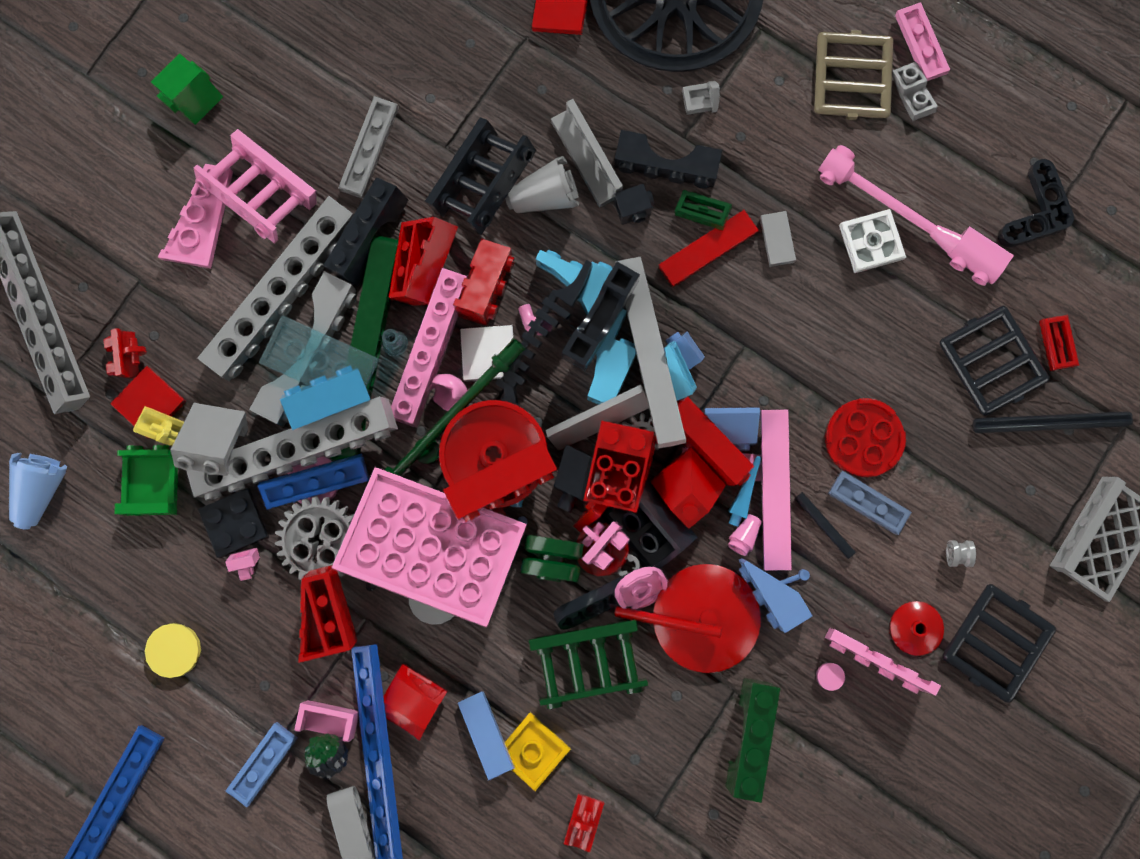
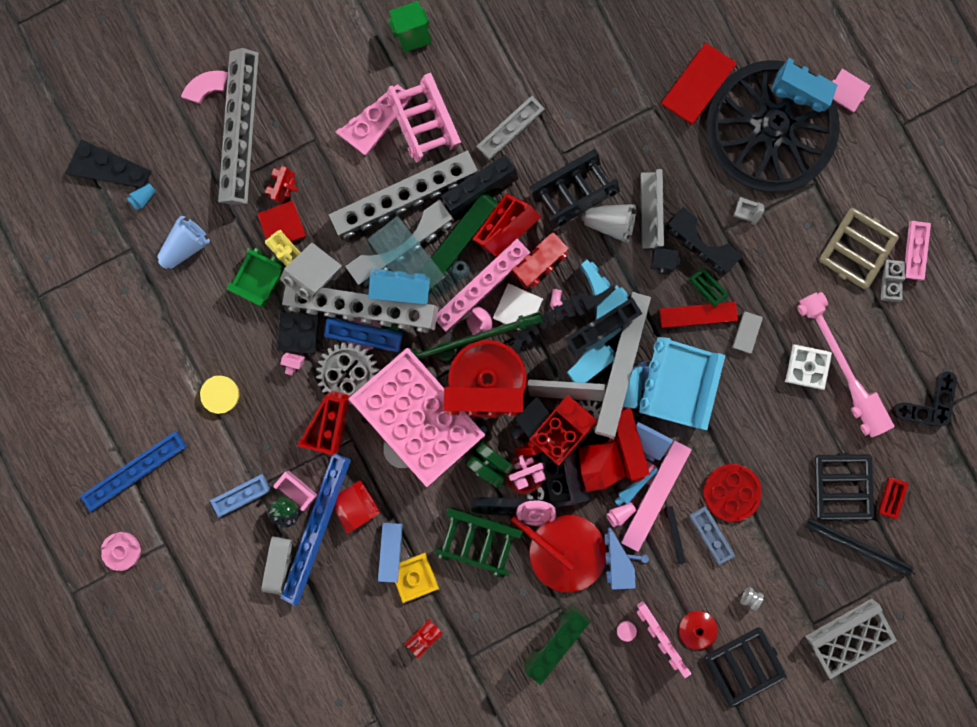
camera: 25 degrees right, 5 degrees up
(733, 337) = (681, 383): none -> medium azure panel

